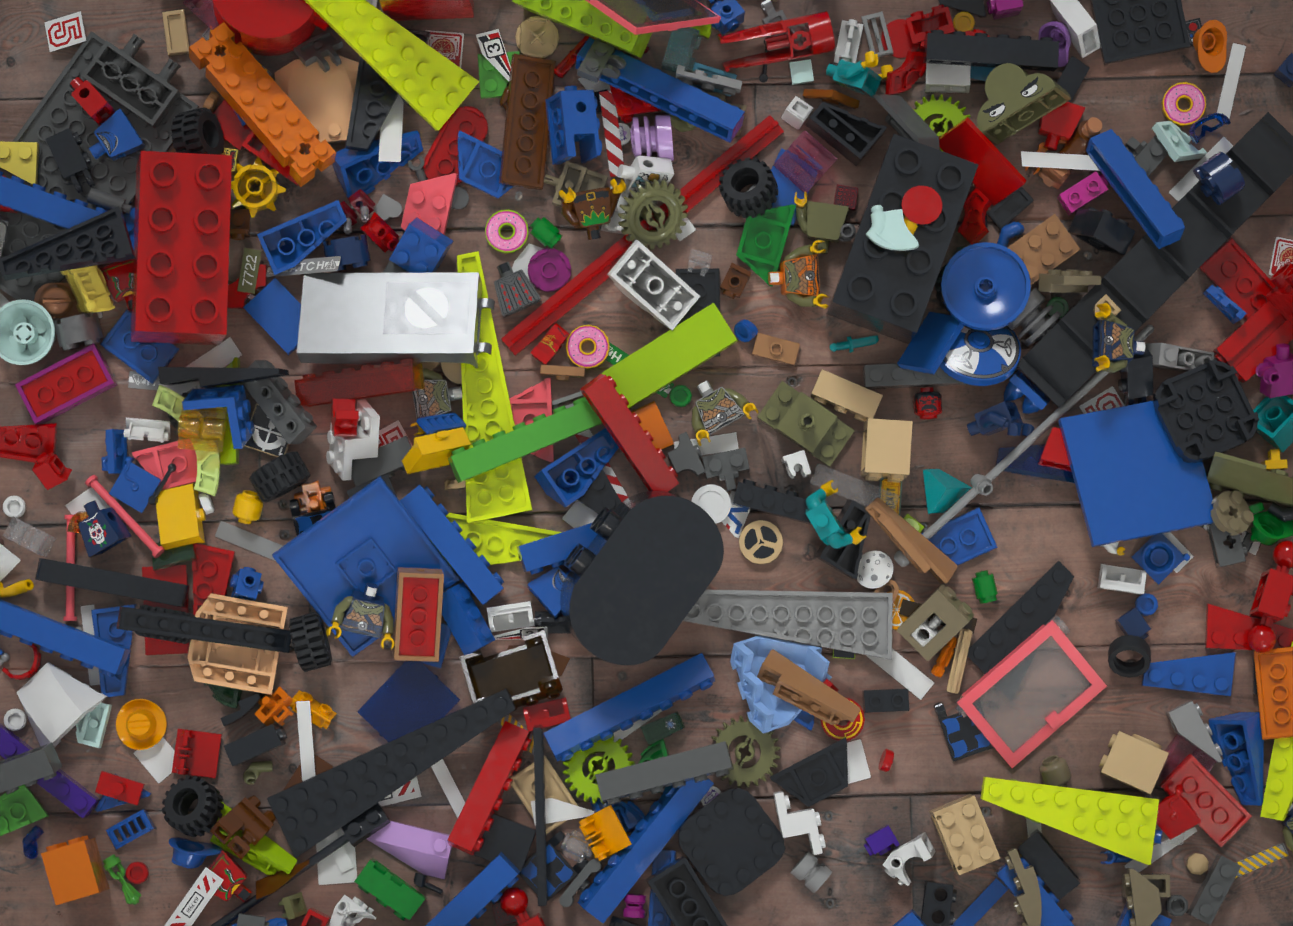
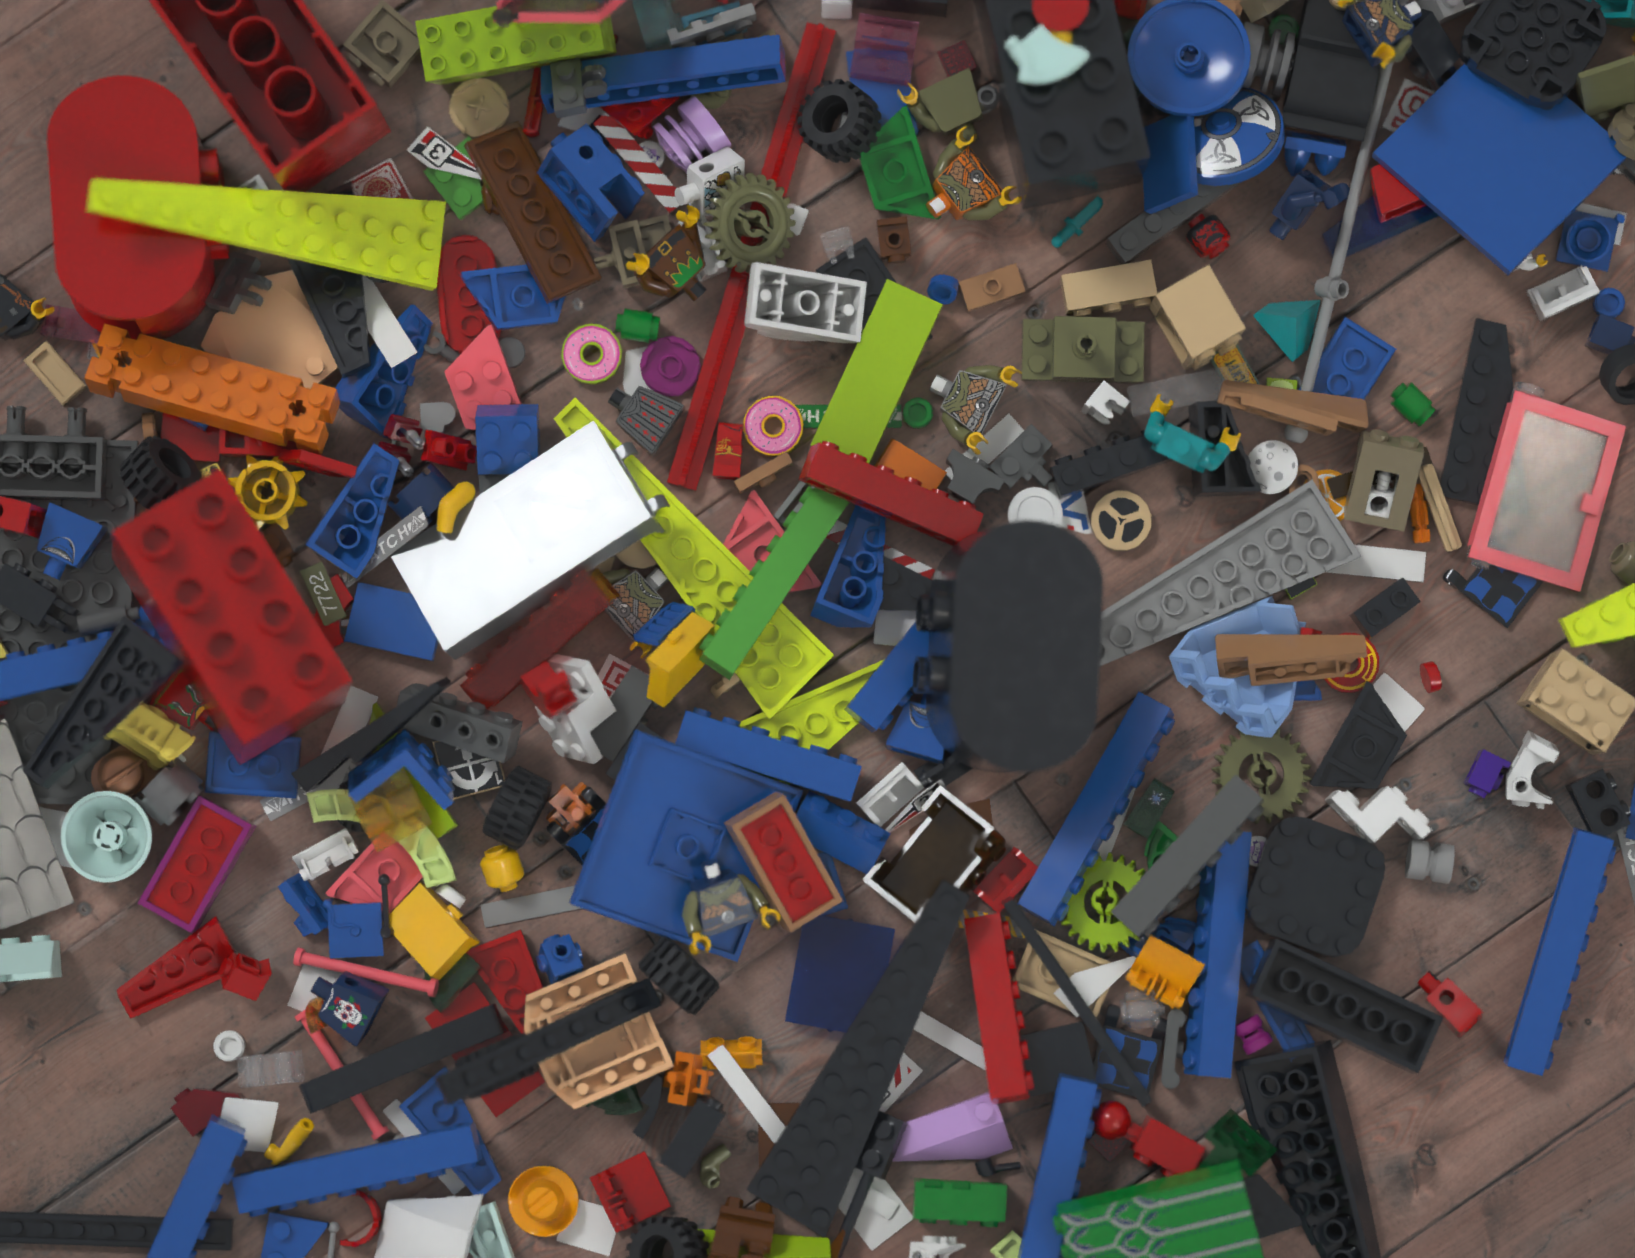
camera: 30 degrees left, 0 degrees up
(296, 190) = (317, 463): none -> red tile
(360, 267) = (452, 504): none -> yellow arm

